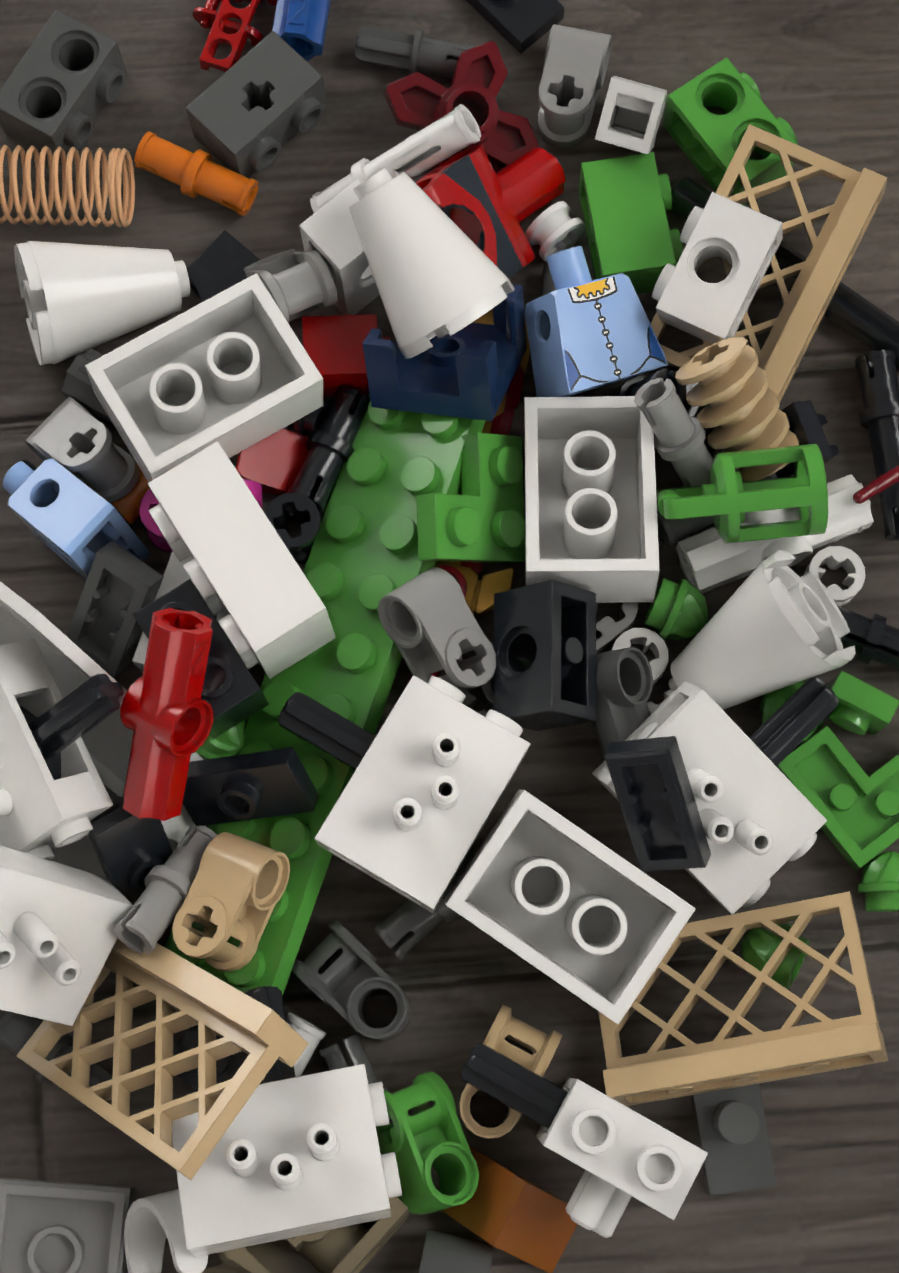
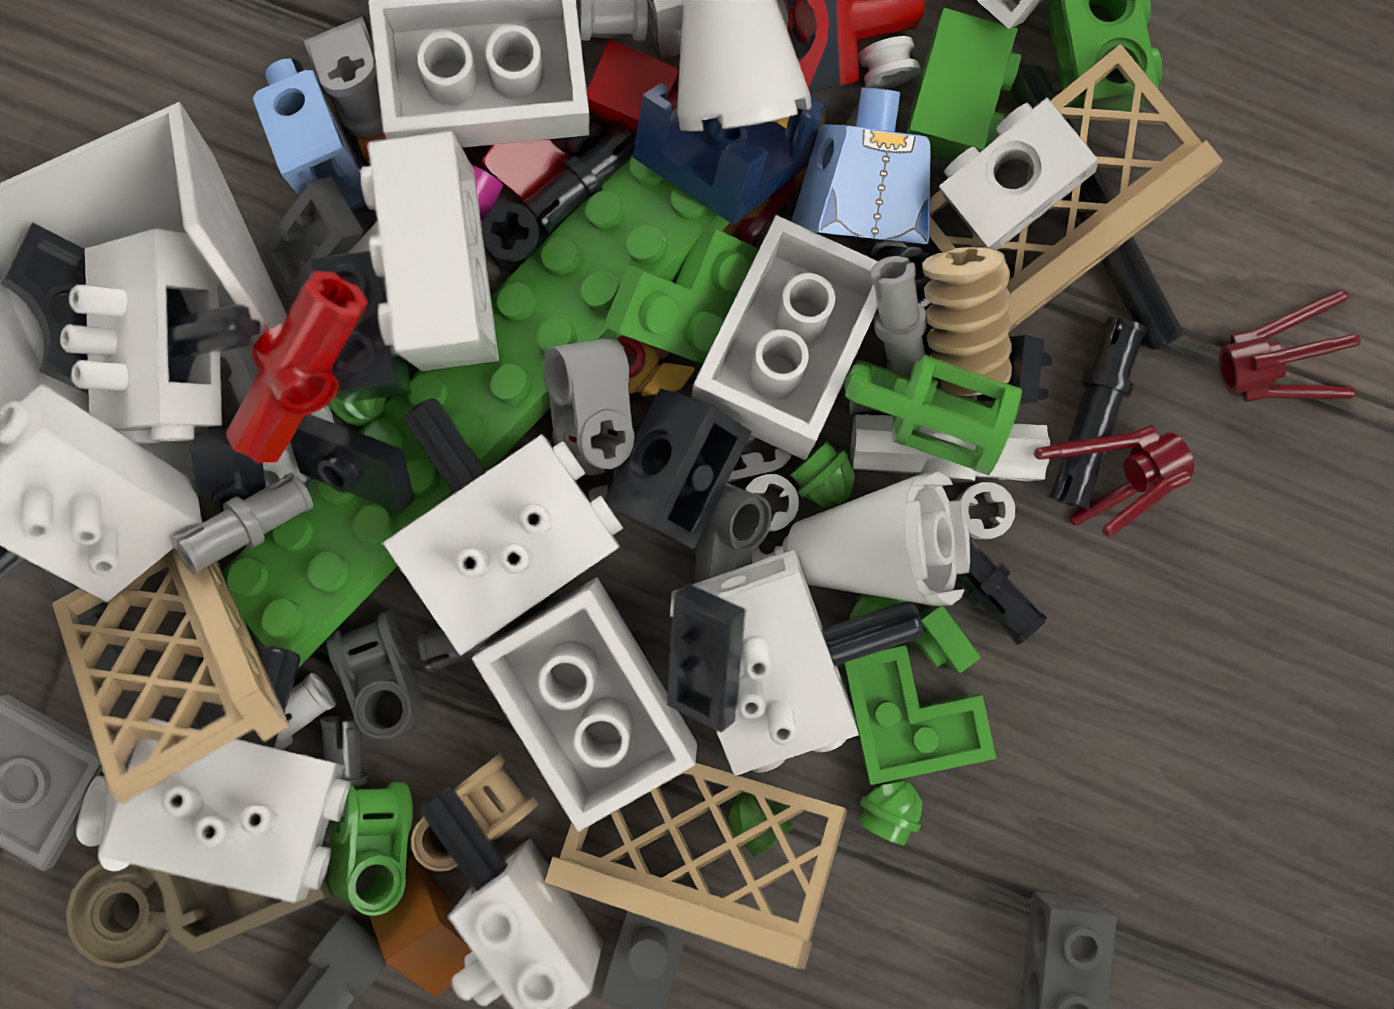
camera: 20 degrees right, 10 degrees up
(232, 898) = (294, 559): tan piece -> none

